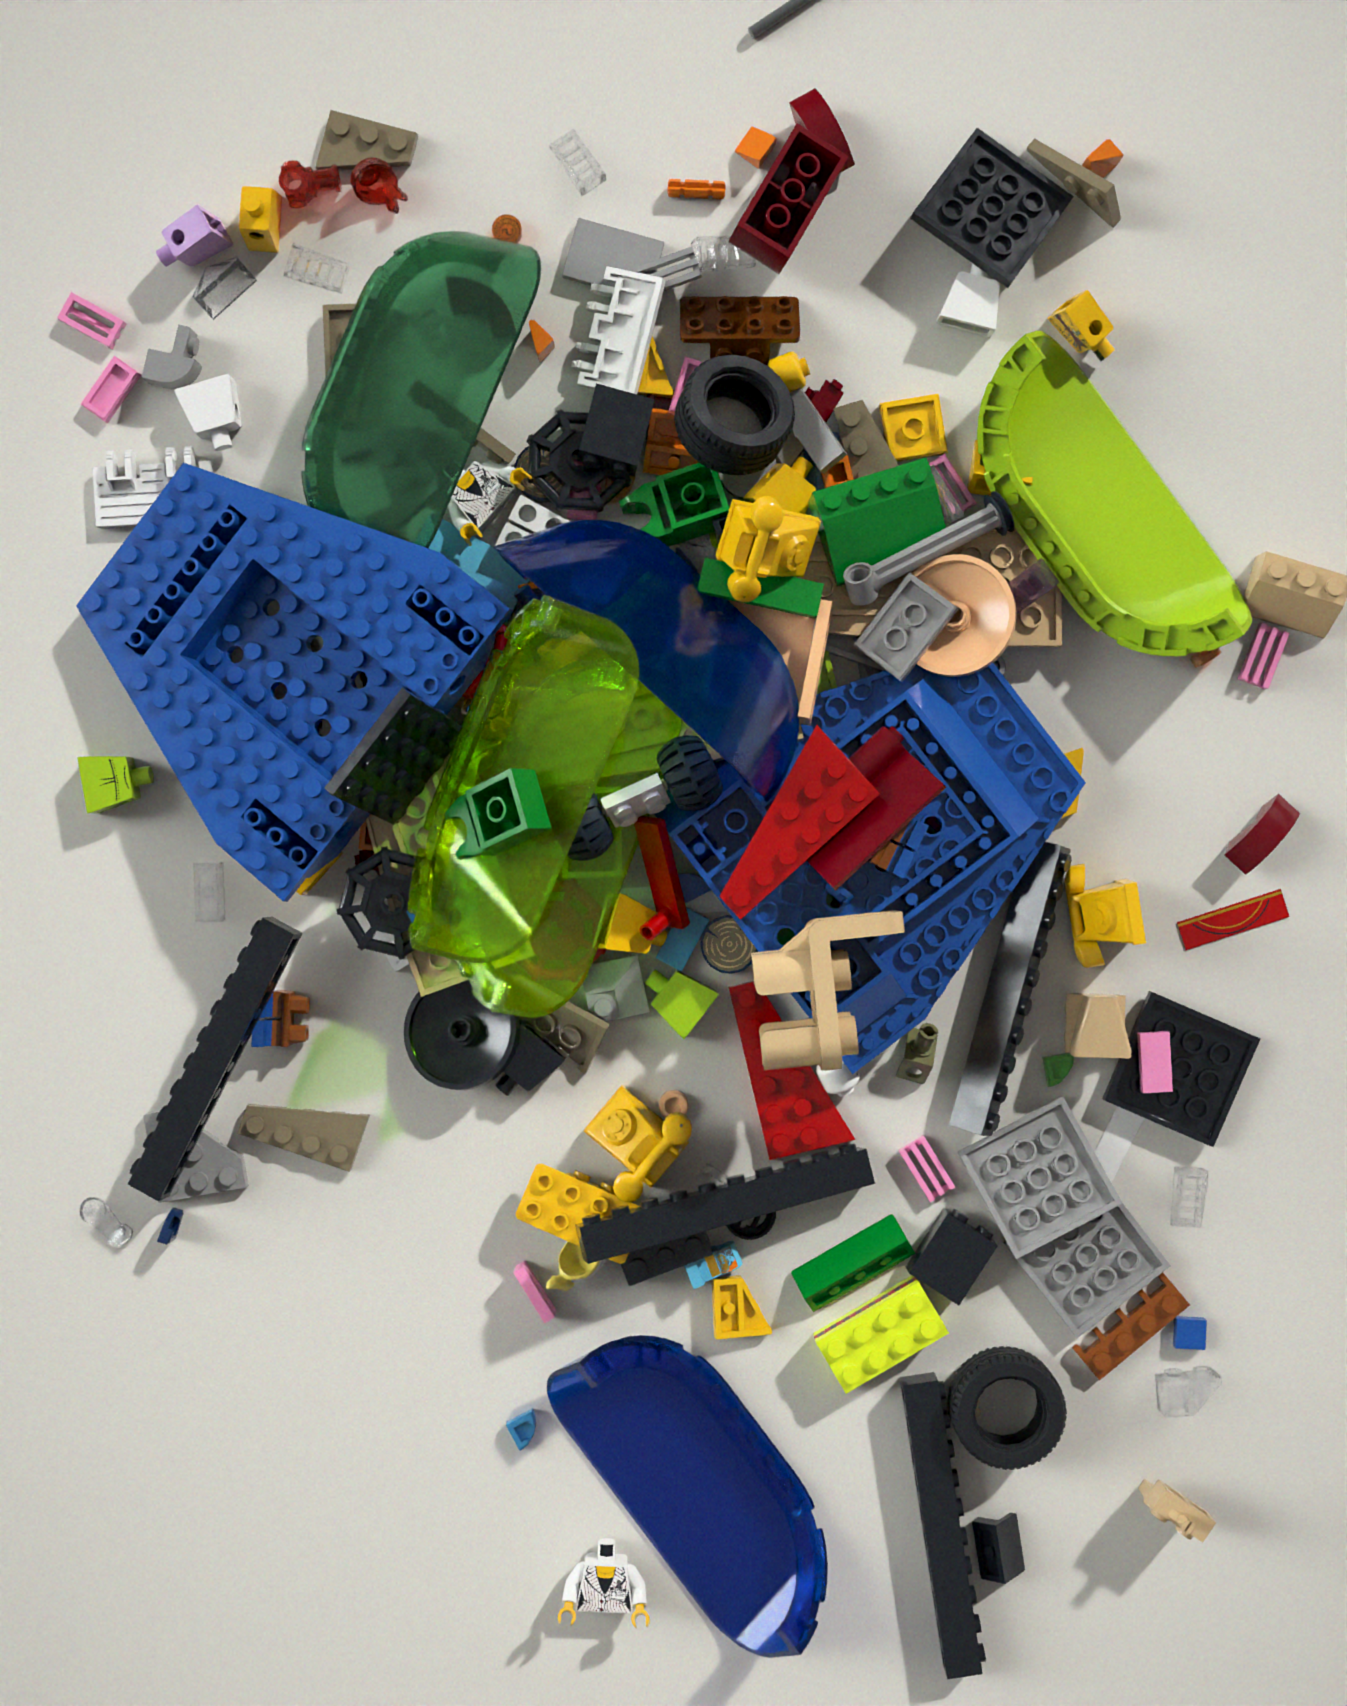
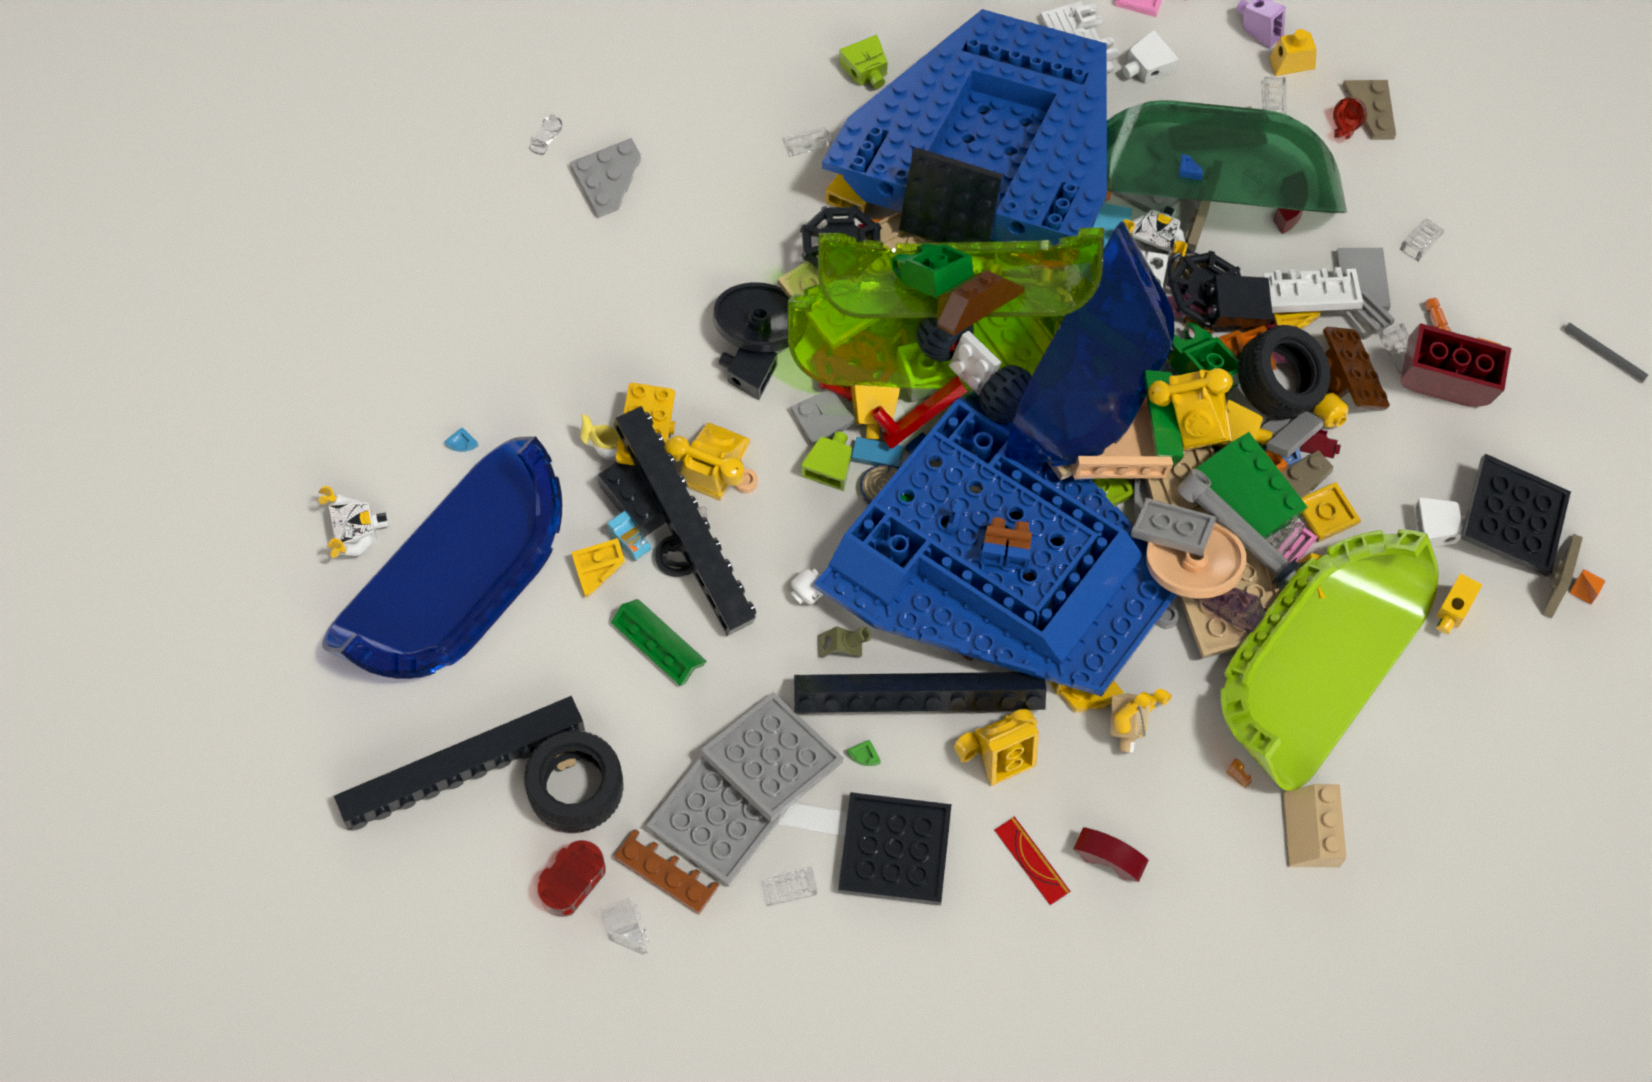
camera: 75 degrees right, 25 degrees down
(171, 1226) = (554, 173): dark blue tile -> none
(174, 369) = (1174, 33): light grey brick -> none
(214, 1058) = (690, 163): black brick -> none
(222, 285) = (1237, 47): clear slope -> none
(281, 1030) = (738, 204): dark orange hips -> none
(306, 1132) = (649, 249): dark tan wing -> none
(311, 182) = (1329, 74): clear red connector -> none
(428, 430) = (1189, 168): none -> blue tile
(507, 228) = (1355, 208): clear orange tile -> none
(535, 1291) = (572, 419): bright pink tile -> none
(542, 340) = (1282, 245): orange slope -> none
(572, 784) = (974, 300): none -> reddish brown wedge
(573, 1032) = (784, 389): dark tan wing -> none
(789, 1101) = (776, 559): red wing -> none
(810, 808) = (1010, 472): red wing -> none
(812, 966) = (884, 501): tan piece -> none
(816, 116) = (1518, 383): dark red brick -> none
(880, 1333) = (608, 672): neon yellow brick -> none
(904, 792) = (1027, 508): dark red door -> none
(939, 1190) = (765, 661): bright pink tile -> none
(952, 1255) = (687, 710): black brick -> none
(998, 1548) = (452, 817): black panel -> none
(1096, 1026) = (910, 768): tan piece -> none
(1109, 755) = (1131, 715): none -> torso
(1112, 1435) = (571, 878): none -> clear red brick
(1155, 1062) = (895, 819): bright pink tile -> none
(1172, 1506) = (525, 932): tan plate -> none
(1189, 1333) = (674, 921): blue tile -> none
(1272, 665) = (1278, 821): bright pink tile -> none

